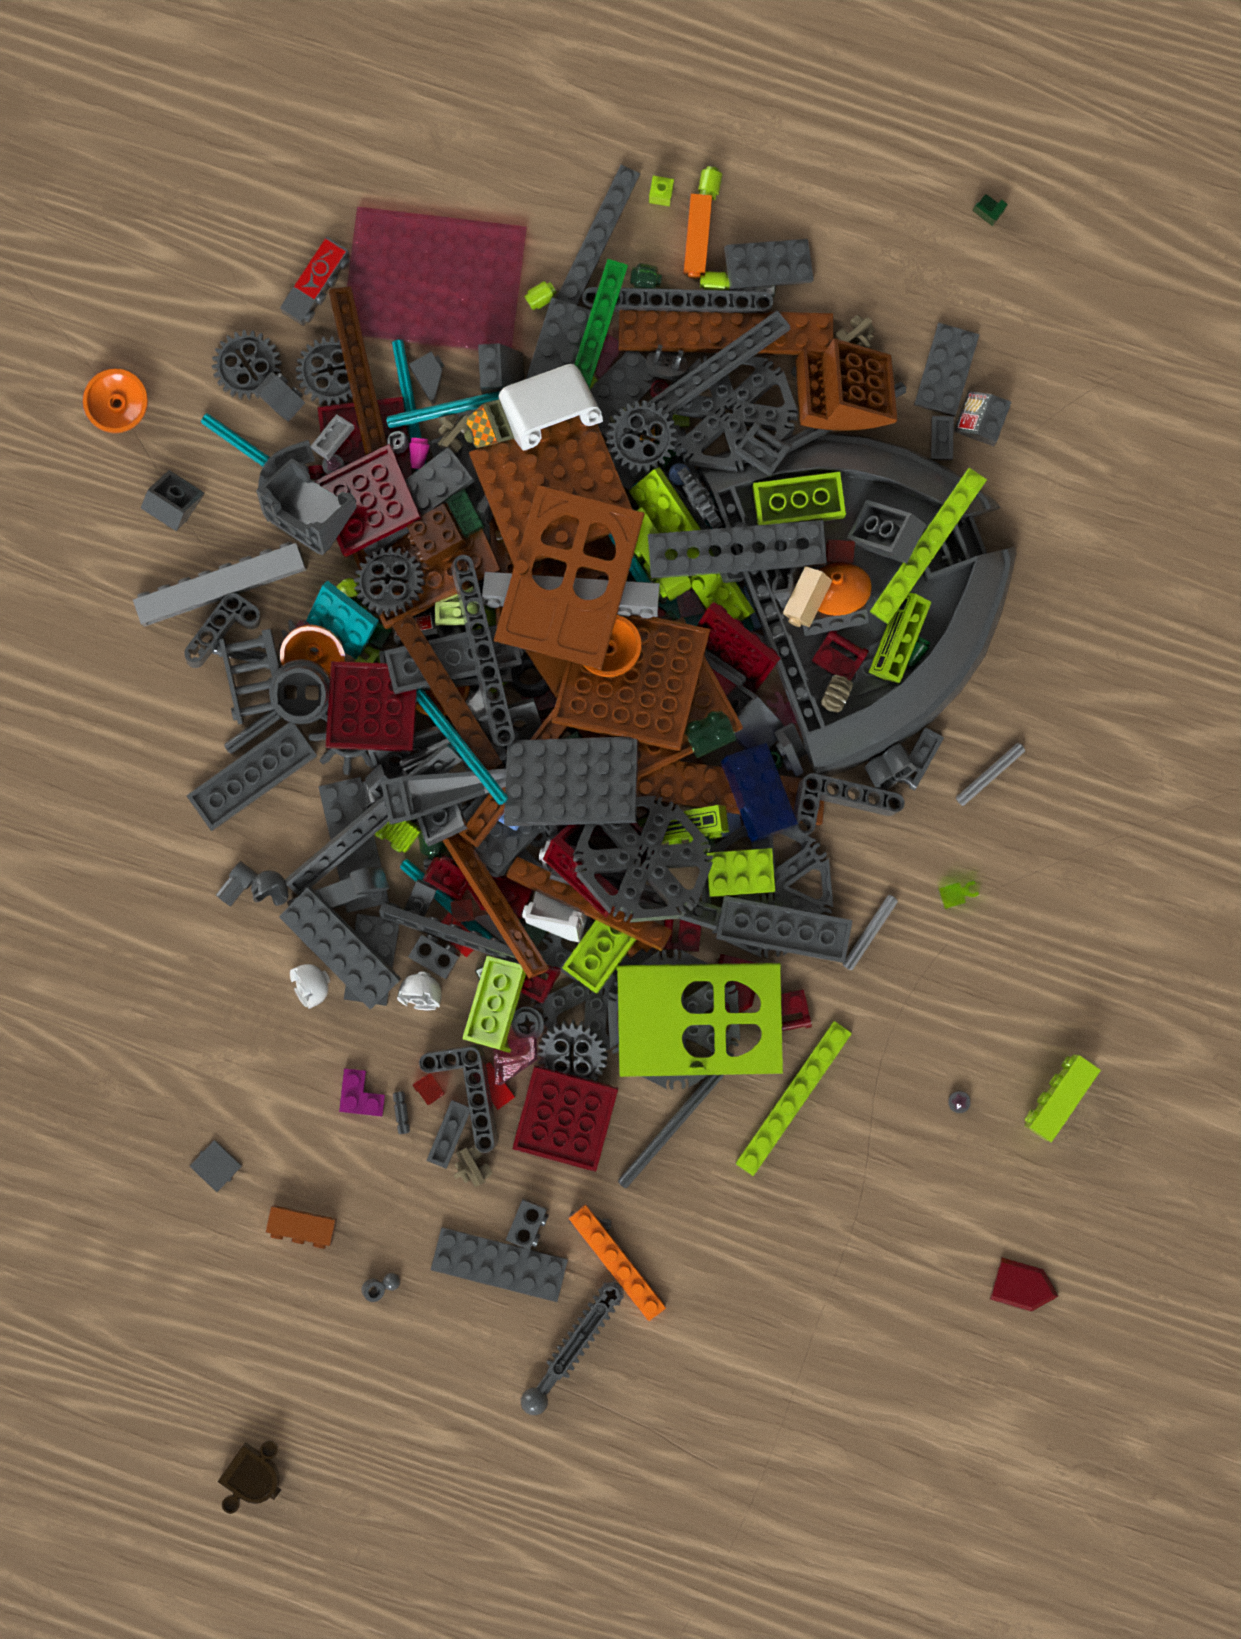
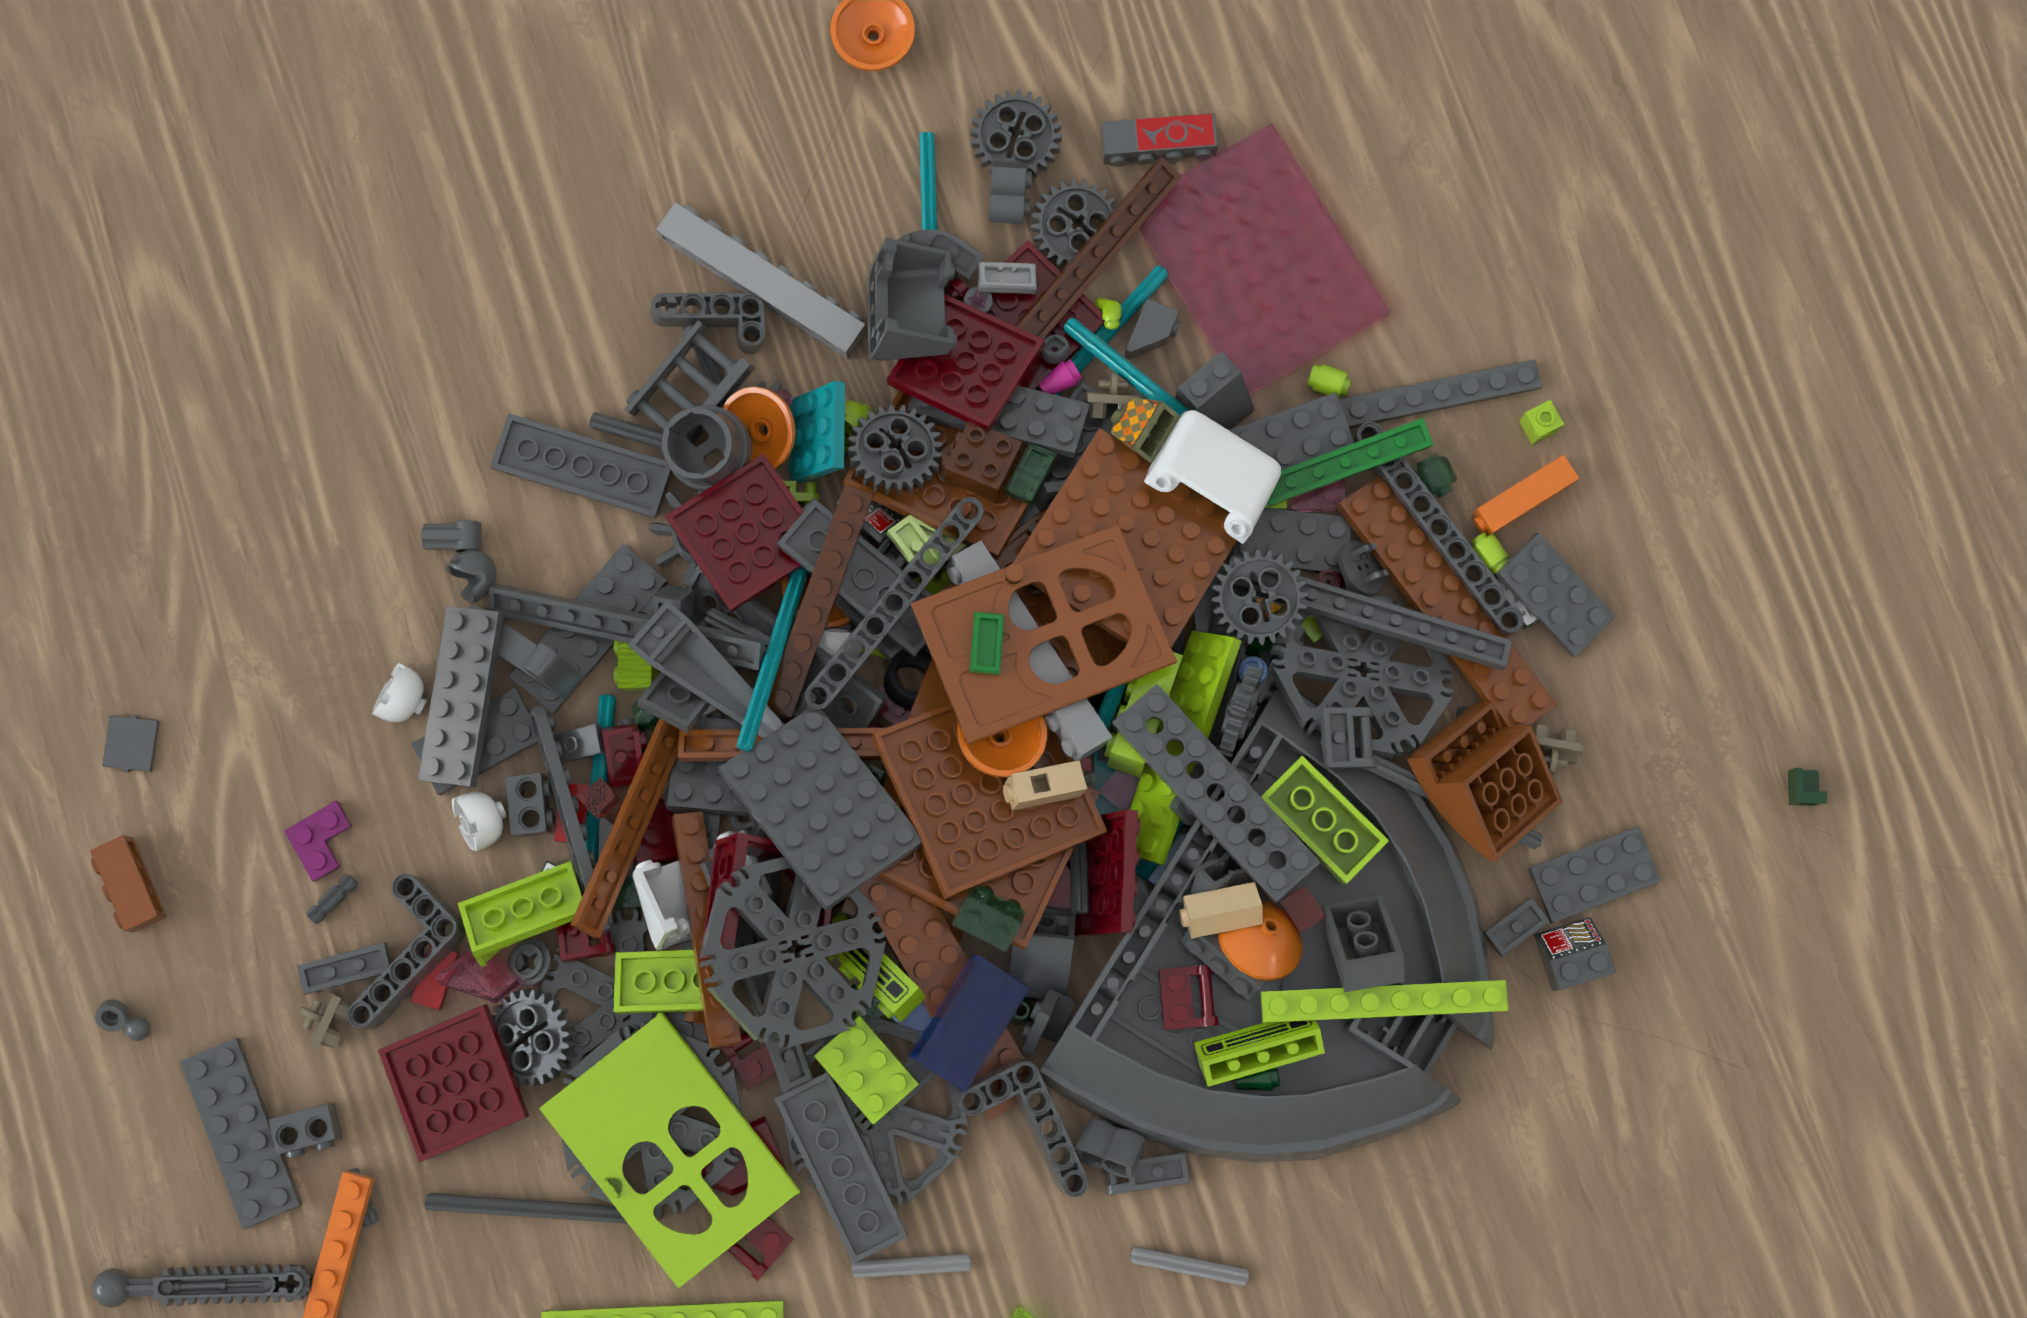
camera: 50 degrees right, 5 degrees down
(172, 500) = (813, 165): dark grey slope -> none
(379, 636) = (832, 484): dark green plate -> none
(400, 391) = (1111, 312): none -> lime arm
(429, 1088) = (380, 909): clear red panel -> none
(551, 613) = (986, 643): none -> green tile
(657, 644) = (1044, 785): none -> tan brick
(710, 182) = (1592, 466): lime brick -> none
(784, 711) = (1081, 984): clear pink plate -> none
(836, 693) = (1142, 1025): dark tan gear -> none

